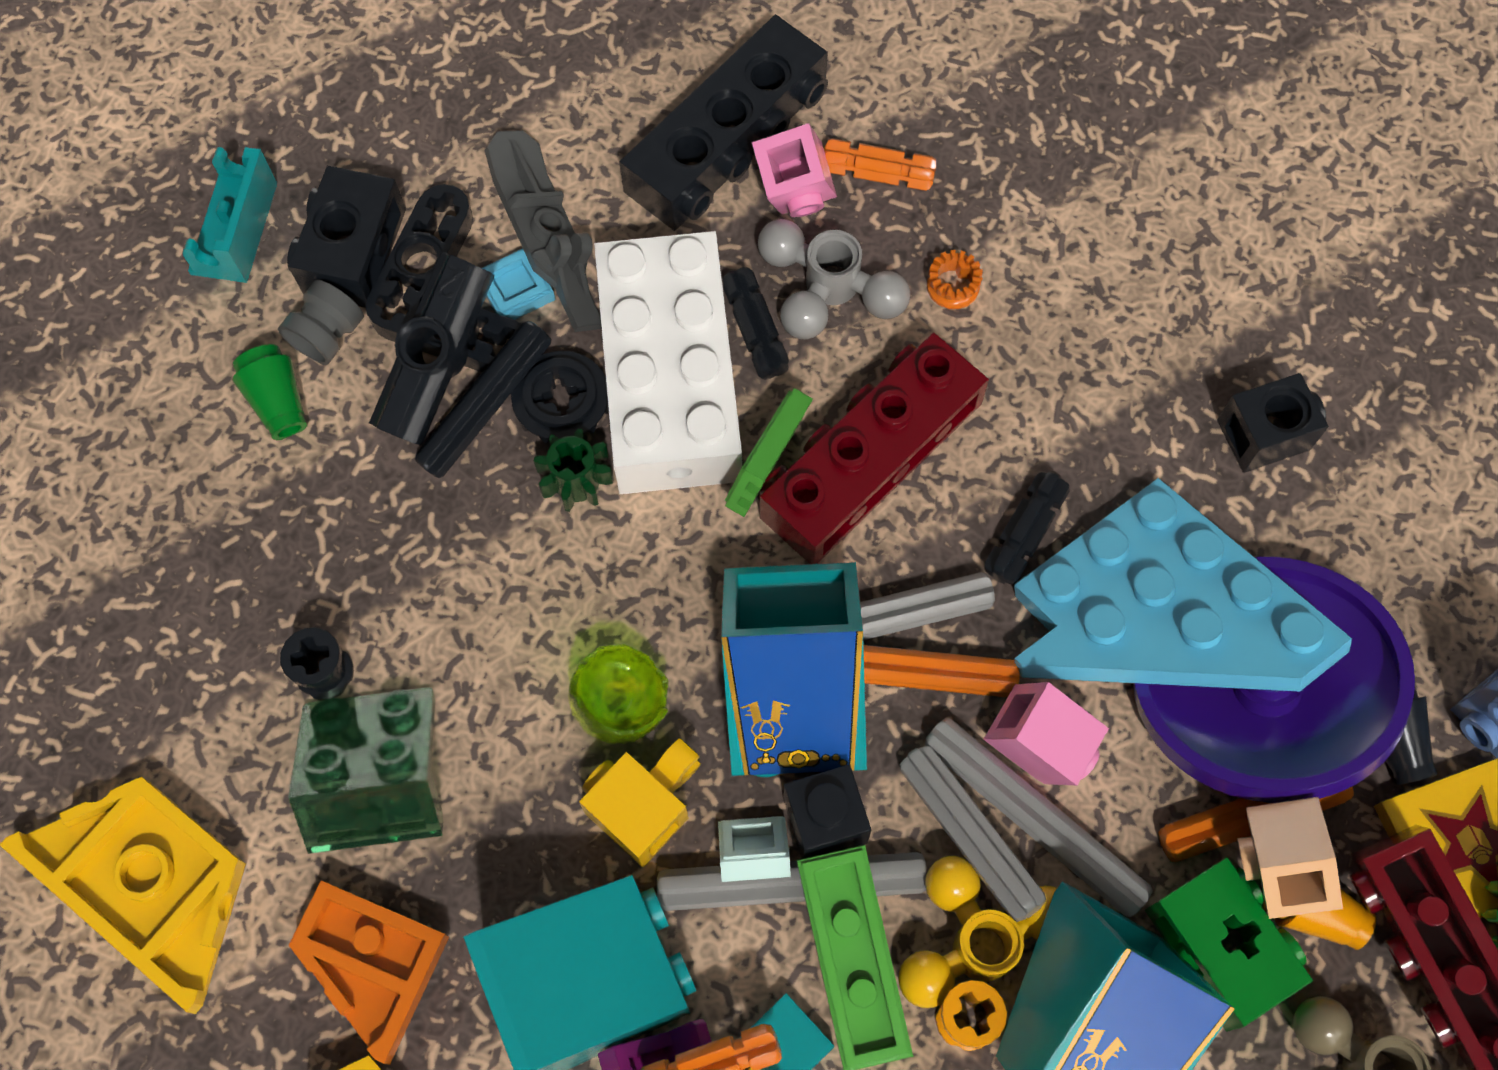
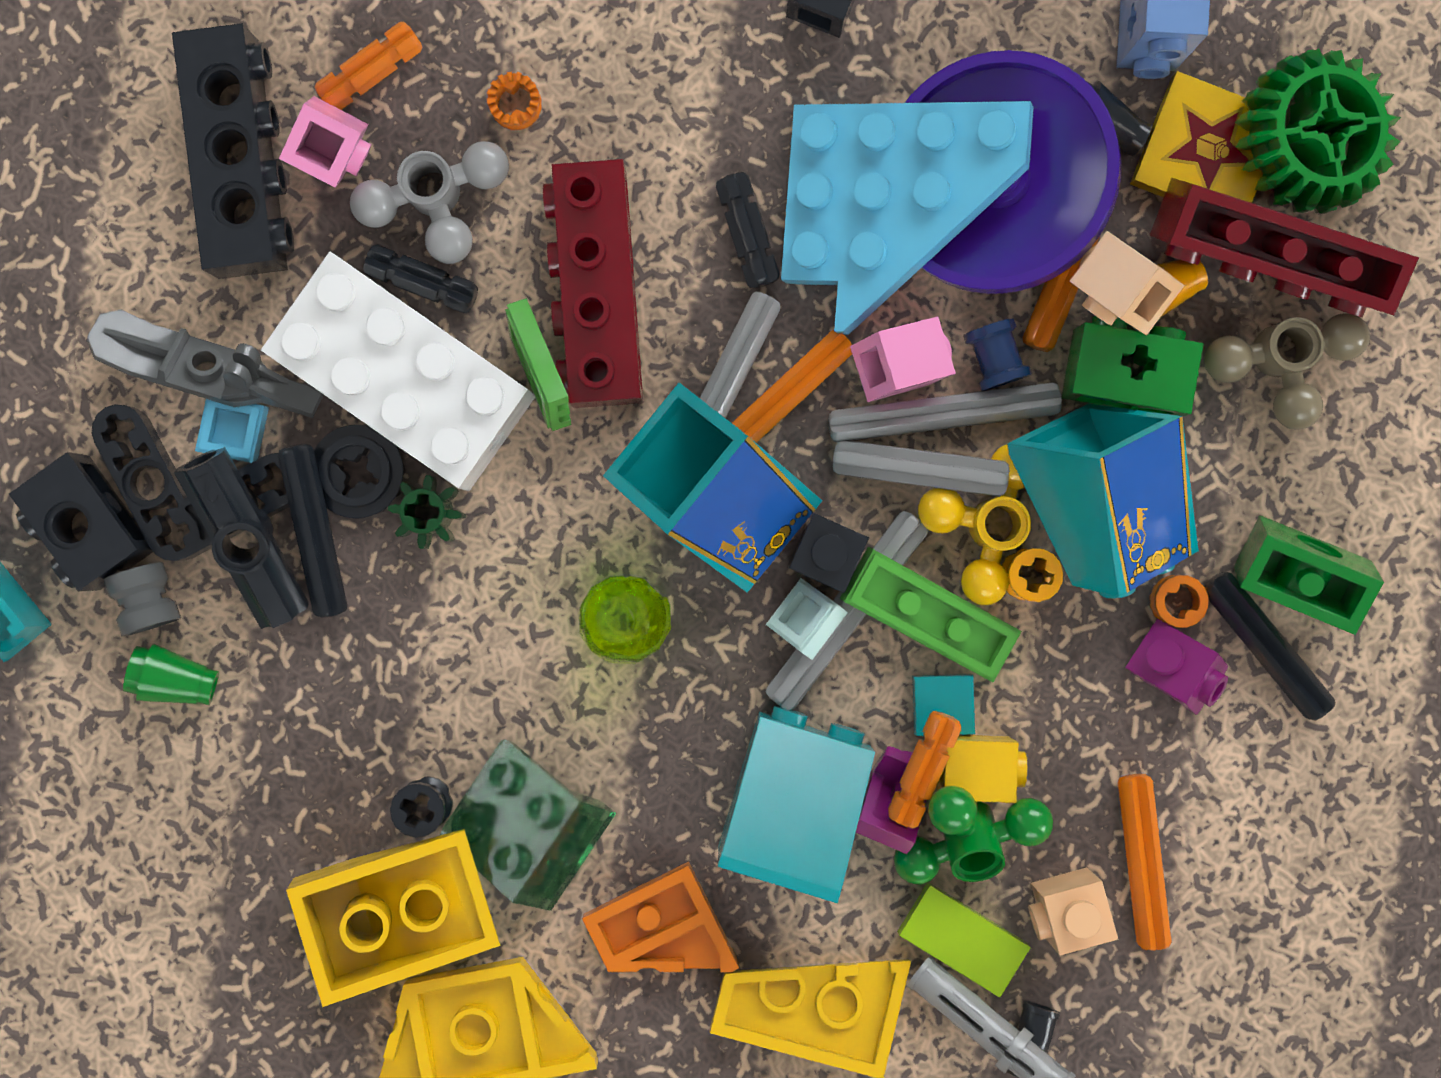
camera: 55 degrees left, 20 degrees up
(197, 711) = (391, 915): none -> yellow slope
(639, 805) = (711, 672): yellow brick -> none
(1127, 814) = (997, 354): none -> dark blue bush

